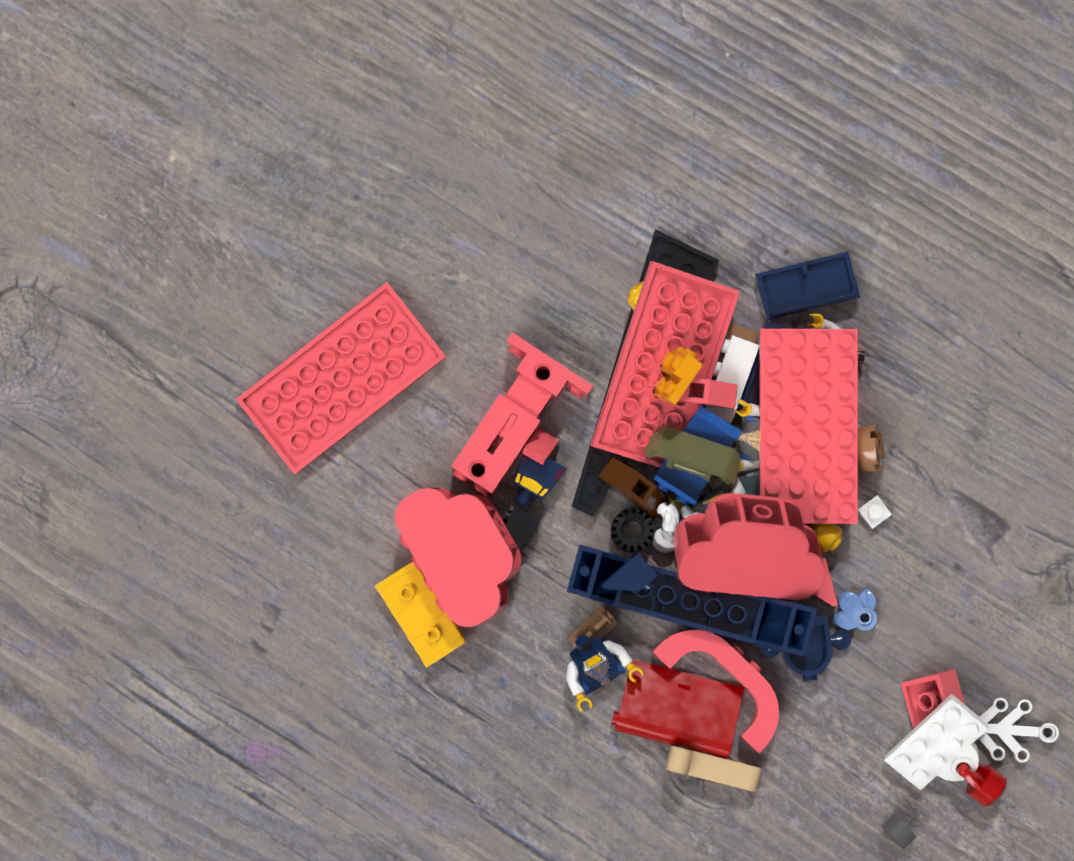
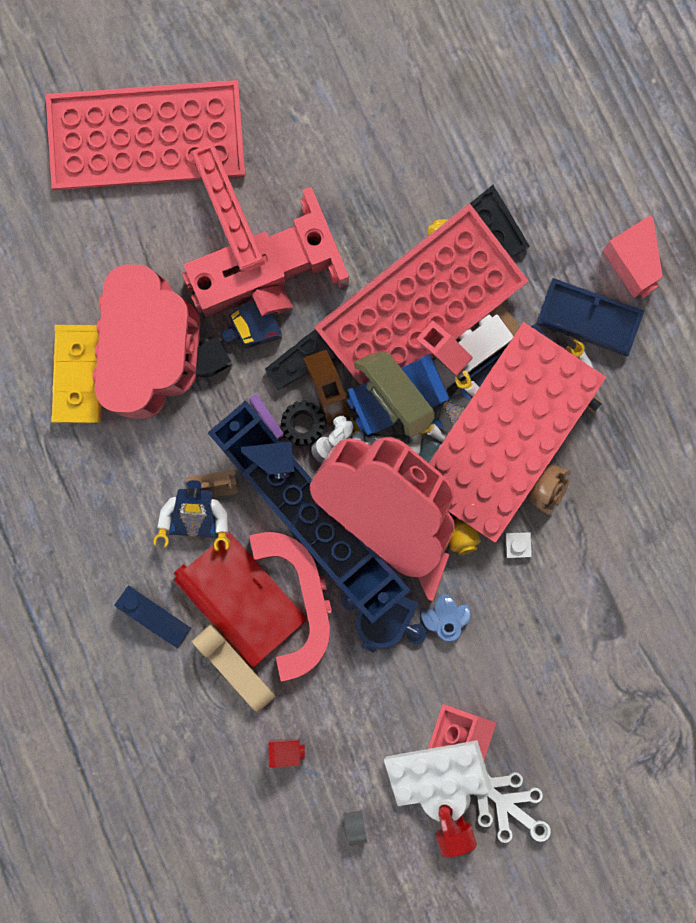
camera: 30 degrees right, 0 degrees up
(454, 395) = (227, 208): none -> coral tile
(593, 542) = (265, 415): none -> medium lavender tile
(617, 771) = (152, 616): none -> dark blue slope
(680, 368) = (432, 310): light orange plate -> none
(801, 808) = (285, 752): none -> red slope
(814, 213) = (636, 258): none -> coral slope

